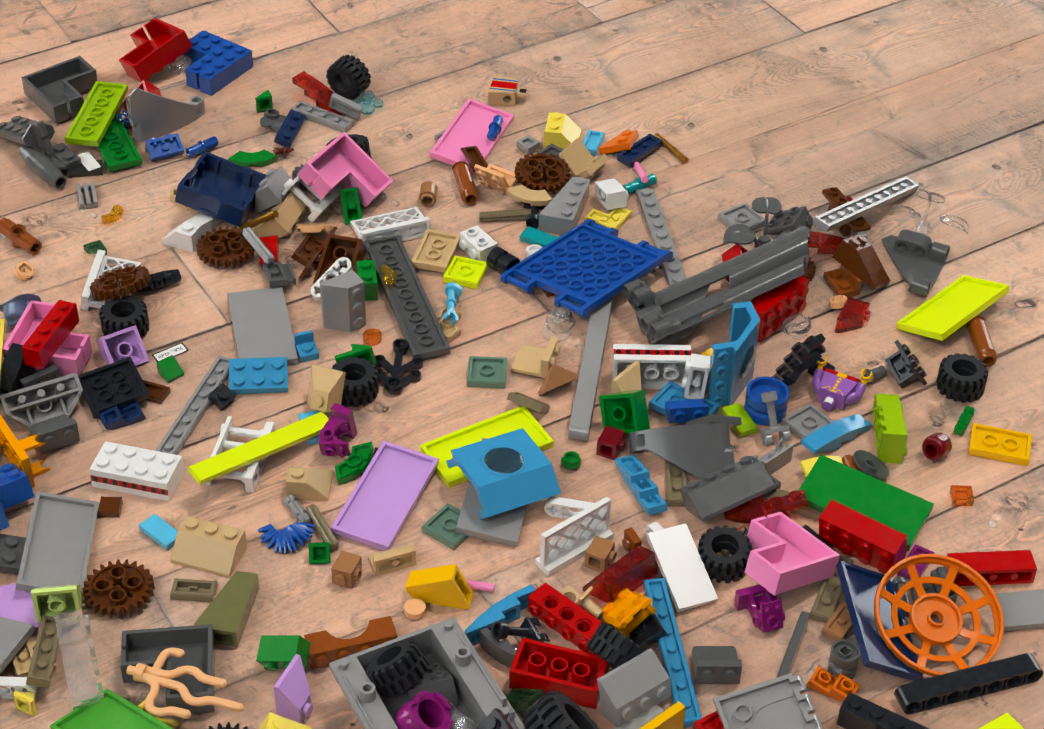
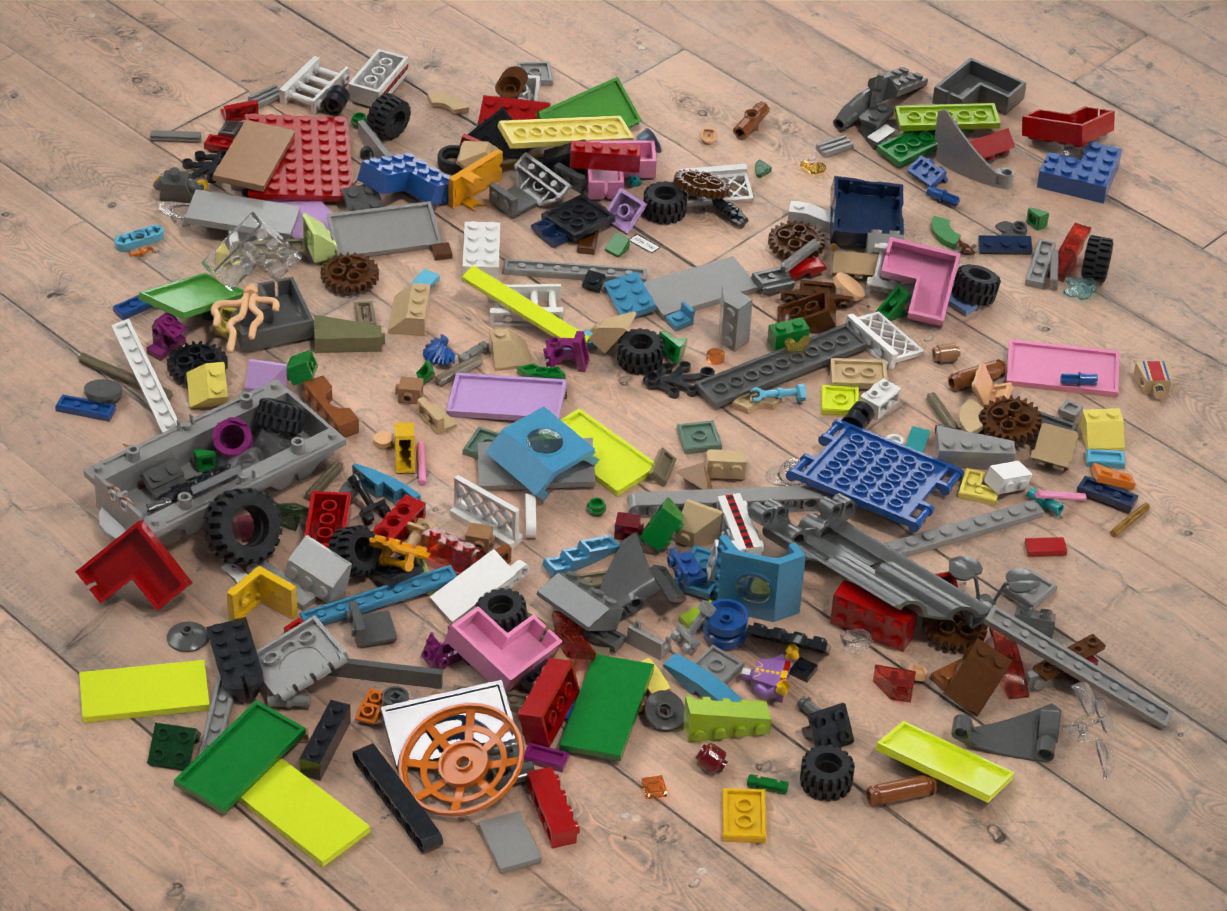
camera: 75 degrees right, 0 degrees up
(332, 271) = (766, 311): white beam -> none
(474, 157) = (1017, 372): reddish brown tile -> none
(693, 198) = (1046, 546): none -> red tile

